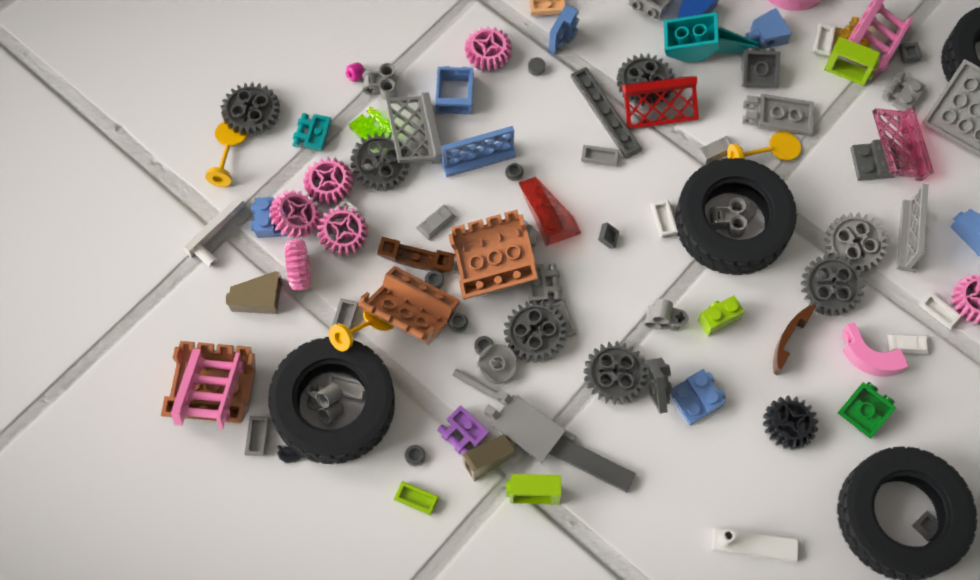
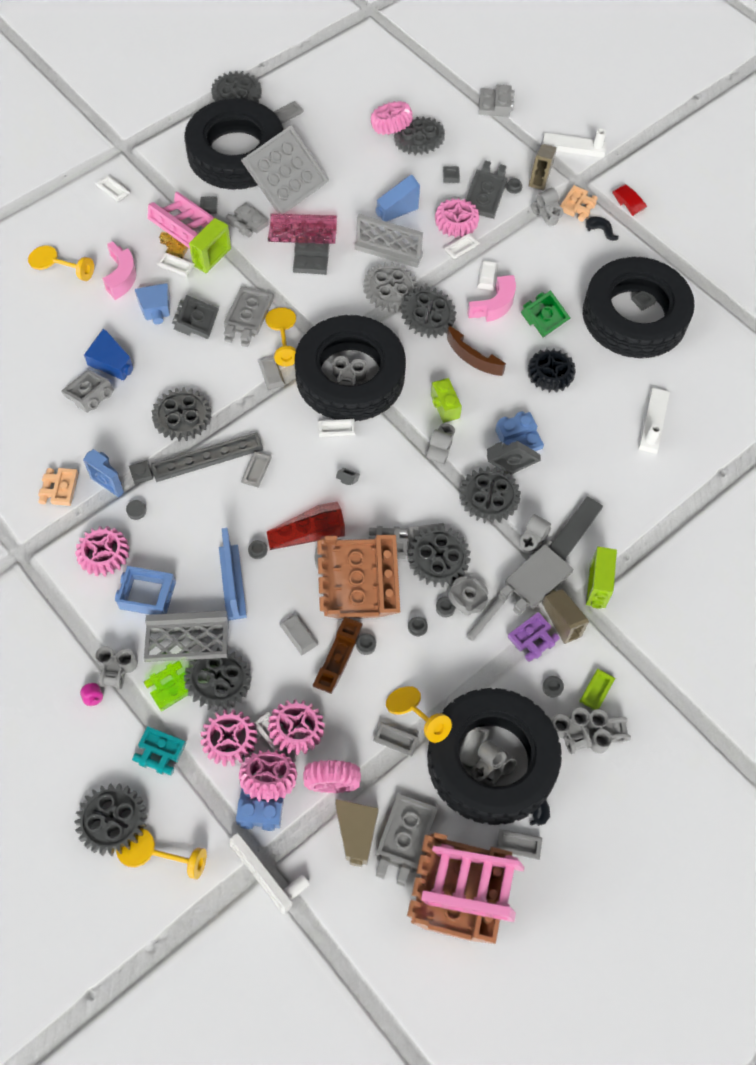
camera: 85 degrees left, 5 degrees down
(265, 337) = (404, 836): none -> light grey tile
(369, 475) = (574, 733): none -> light grey piece
(373, 511) = (610, 730): none -> light grey piece
(410, 305) = (396, 666): nougat slope -> none
(575, 418) = (537, 532): none -> light grey piece
(576, 61) = (140, 472): none -> dark grey plate
(659, 86) = (199, 399): red fence -> none
(699, 37) = (151, 355): teal slope -> none

